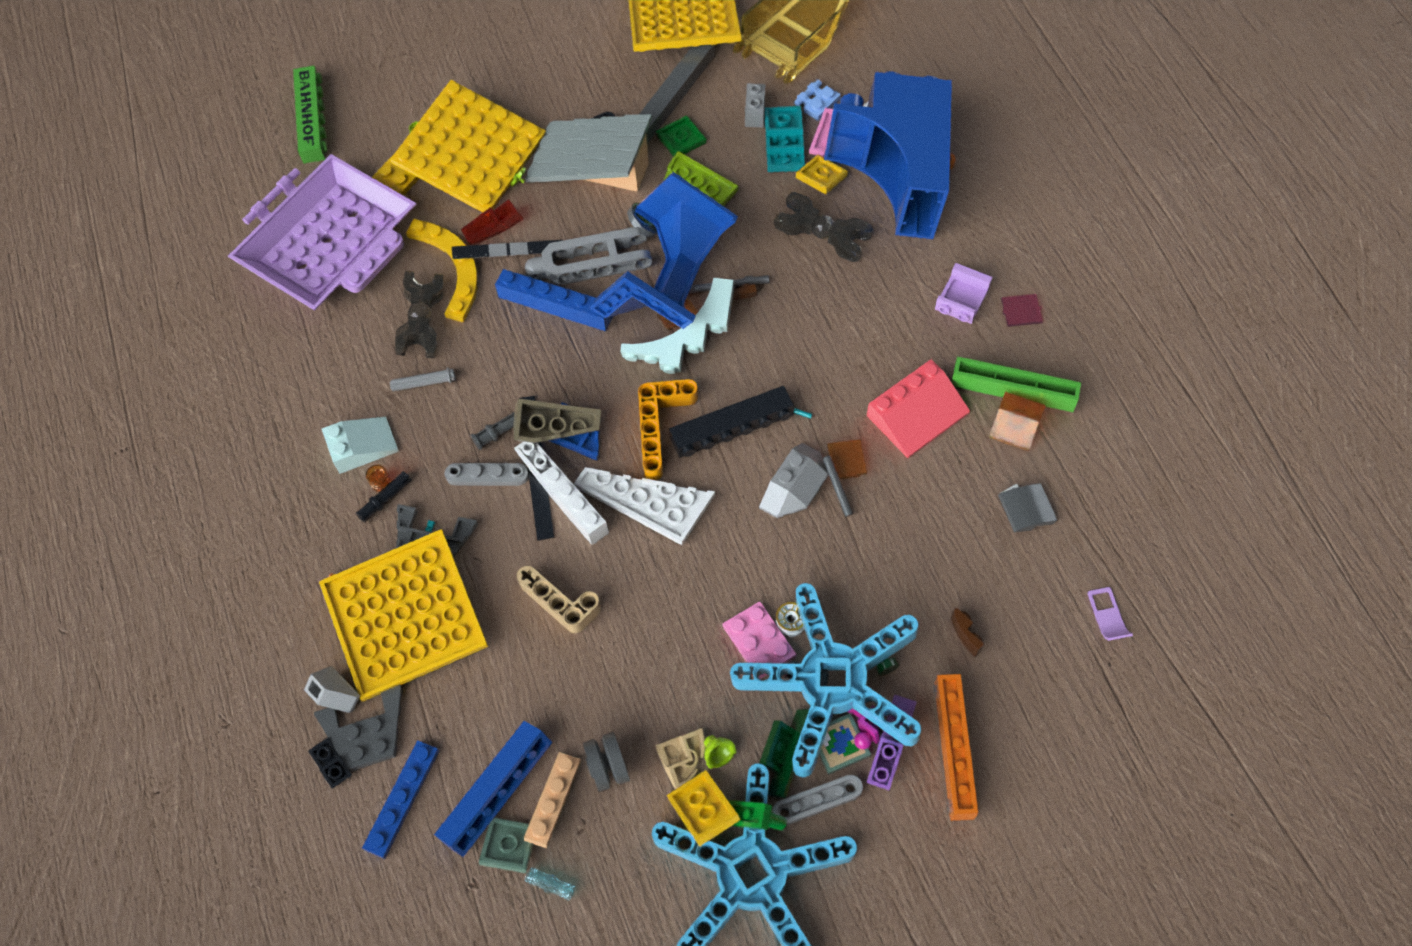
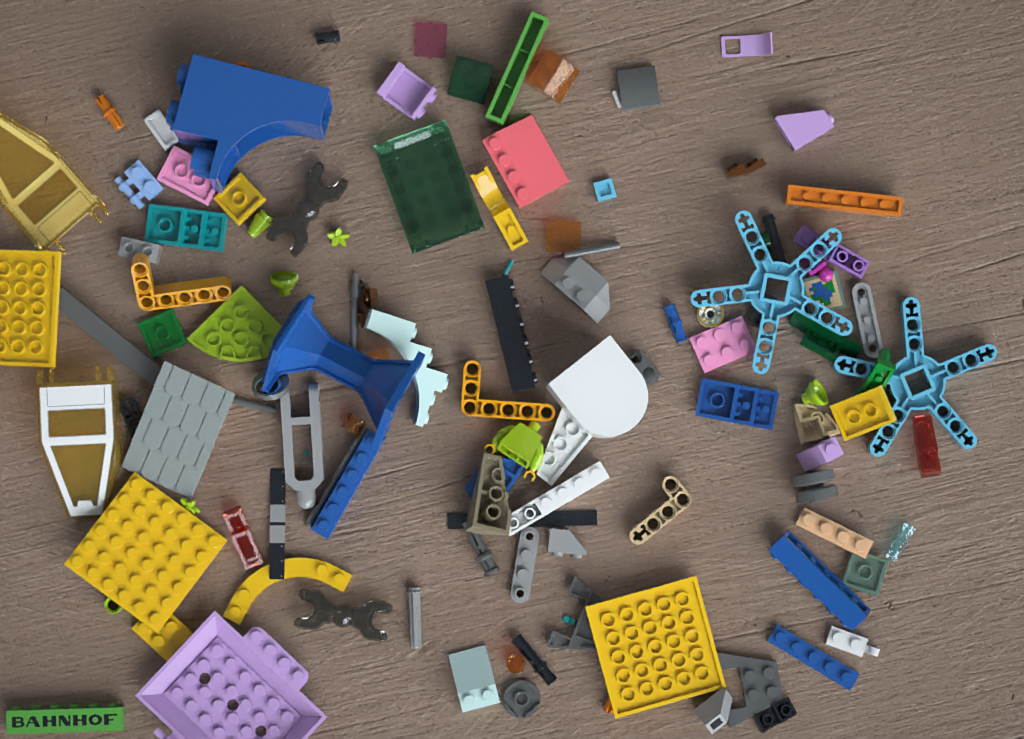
camera: 85 degrees left, 25 degrees up
(341, 492) = (521, 698): none -> dark grey tile
(421, 841) = (849, 642): none -> white plate
(514, 506) = (562, 542): none -> light grey slope
(574, 82) = (81, 440): none -> windscreen
(613, 447) = (521, 445): none -> lime torso
(624, 207) = (254, 405): none -> dark grey bar
(648, 766) = (819, 453): none -> lavender slope
(673, 897) = (926, 446): none -> clear red slope
(682, 497) = (602, 391): none -> white brick
(692, 665) = (737, 404): none -> blue slope
(713, 120) = (175, 290): none -> light orange beam
(716, 559) = (645, 367): none -> dark grey leg
(747, 219) = (284, 281): none -> lime piece
(773, 584) = (675, 323): none -> blue pin
(802, 258) = (338, 237): none -> lime plant
(804, 190) = (259, 223): none -> lime cone
(859, 395) = (499, 209): none -> yellow piece
(871, 326) = (429, 187): none -> clear green slope
(880, 66) = (109, 112): none -> orange axle
(895, 675) = (771, 229): none -> black axle
(906, 492) = (604, 190): none -> medium azure tile
(993, 344) = (470, 79): none -> clear green slope
(1000, 225) = (328, 37): none -> black pin
(1032, 690) = (803, 127): none -> lavender slope

